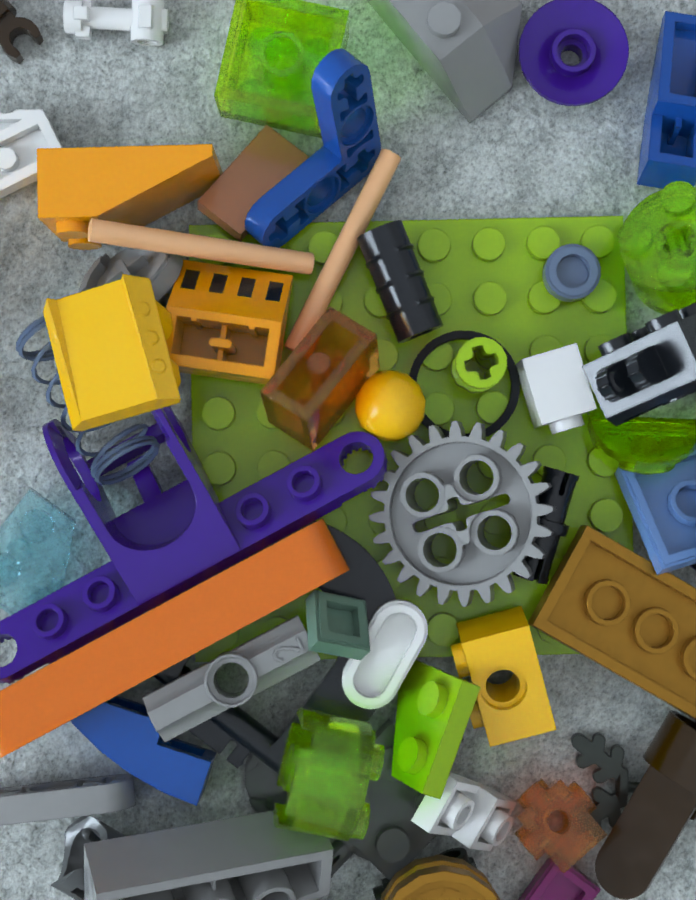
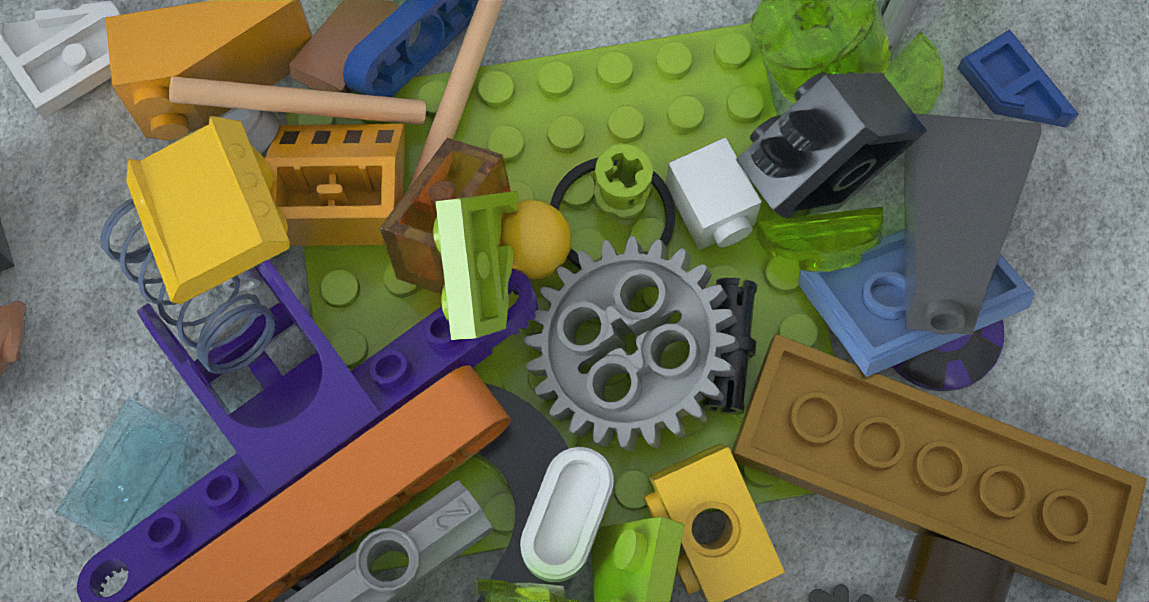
camera: 10 degrees left, 15 degrees down
(337, 625) = (505, 481): sand green tile -> none
(339, 437) = (474, 262): none -> lime wing
(399, 281) = (522, 112): black axle -> none
(571, 272) = (709, 81): sand blue tile -> none

